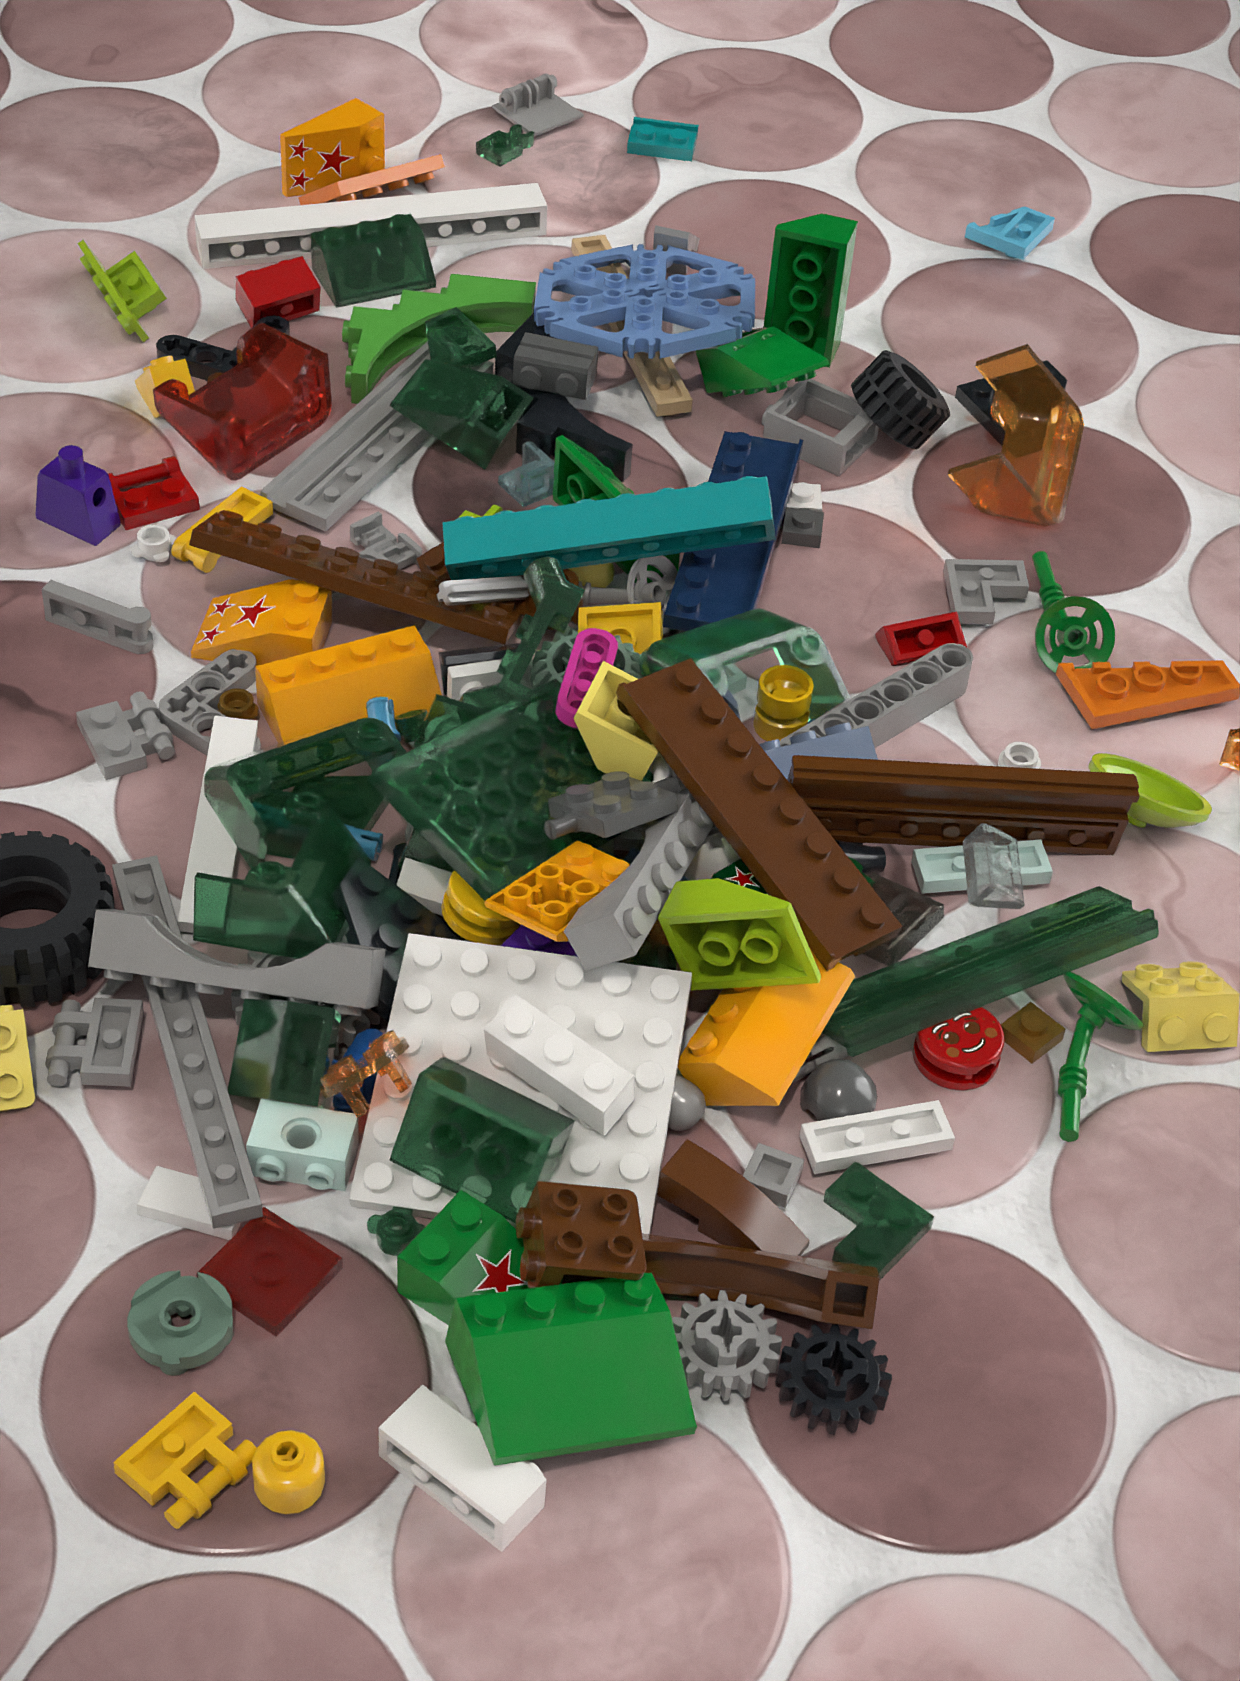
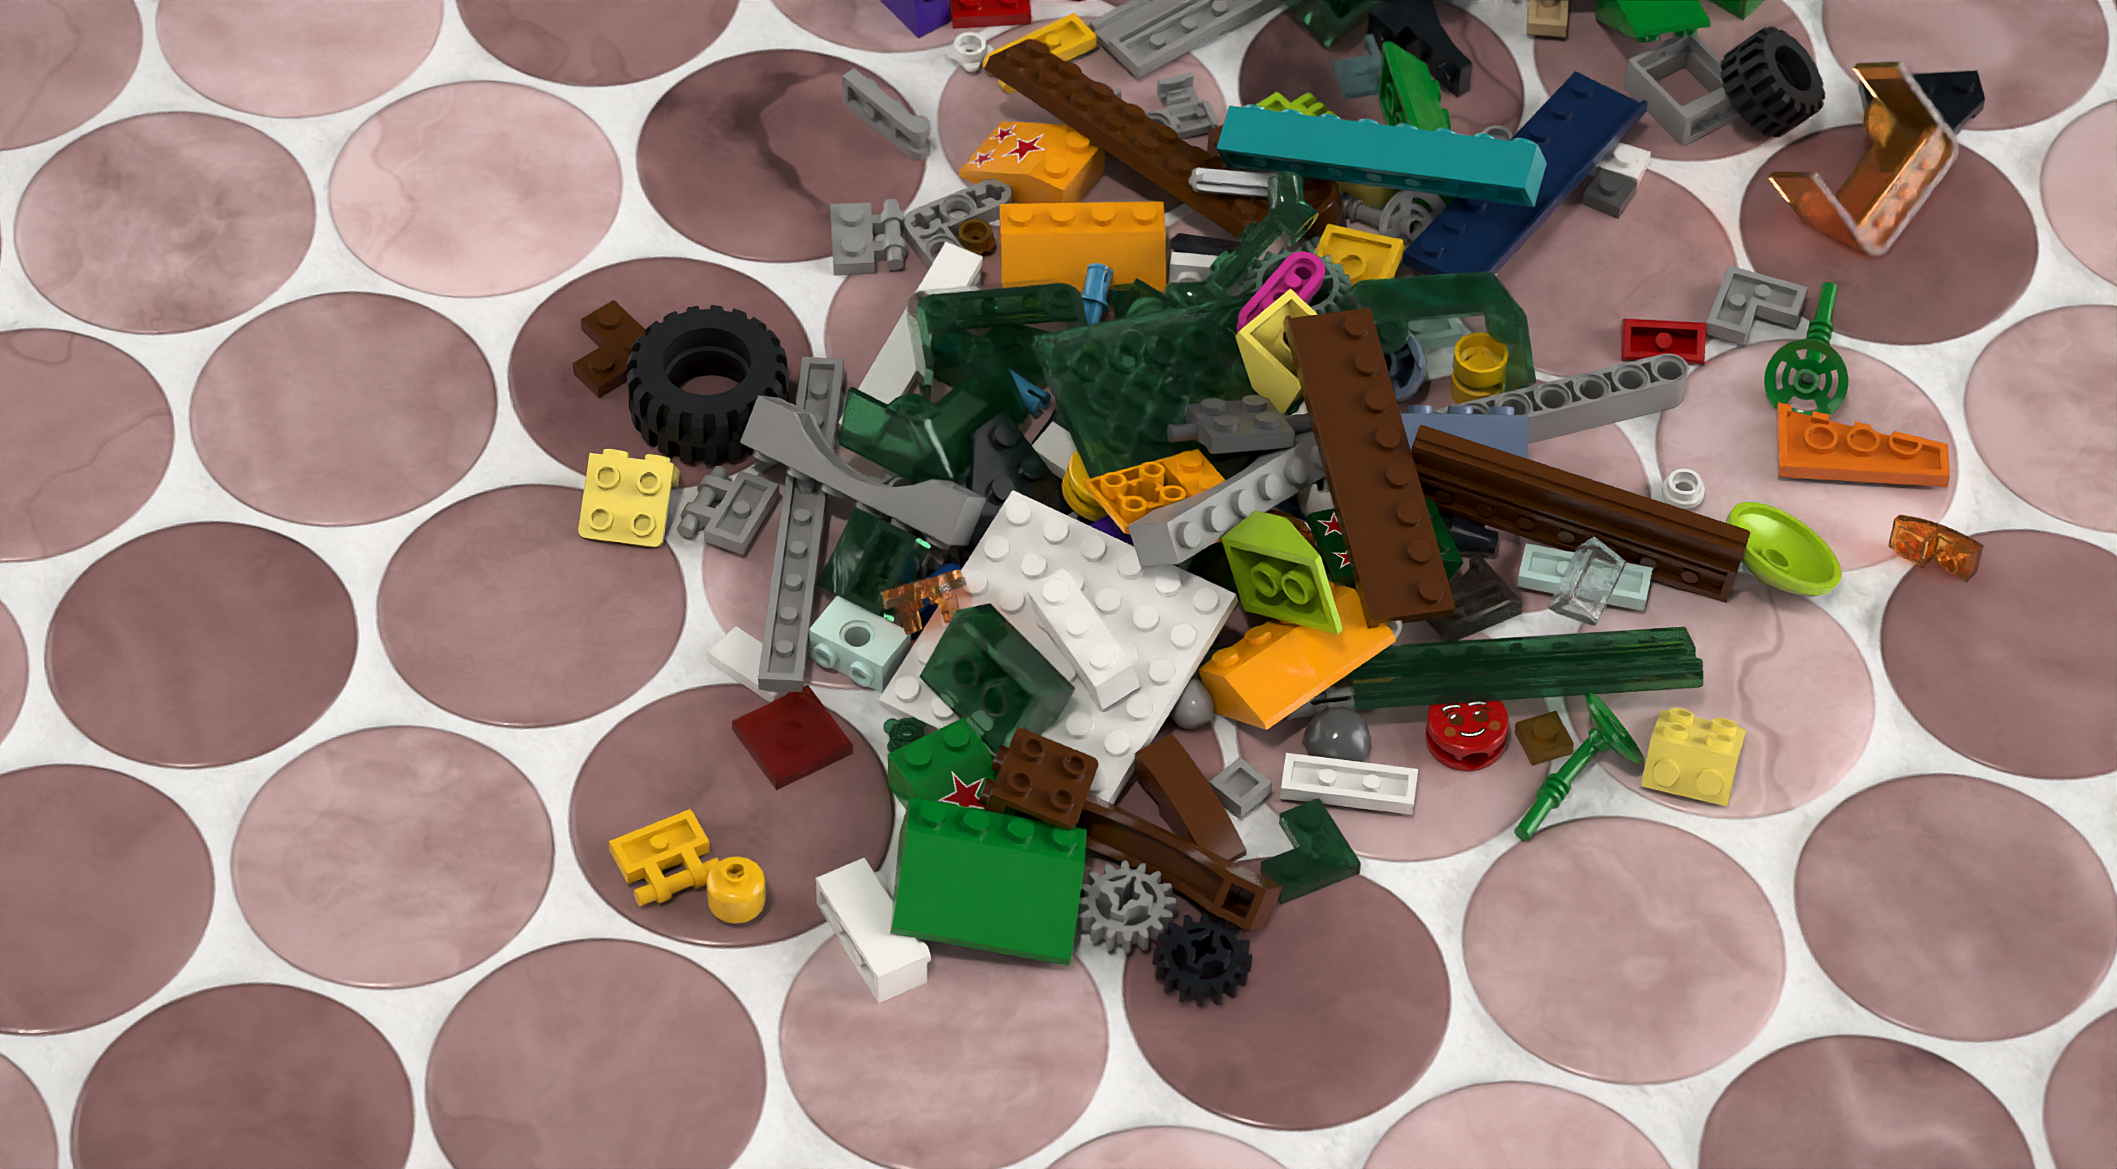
camera: 25 degrees right, 5 degrees up
(186, 1346) = (710, 773): sand green plate -> none

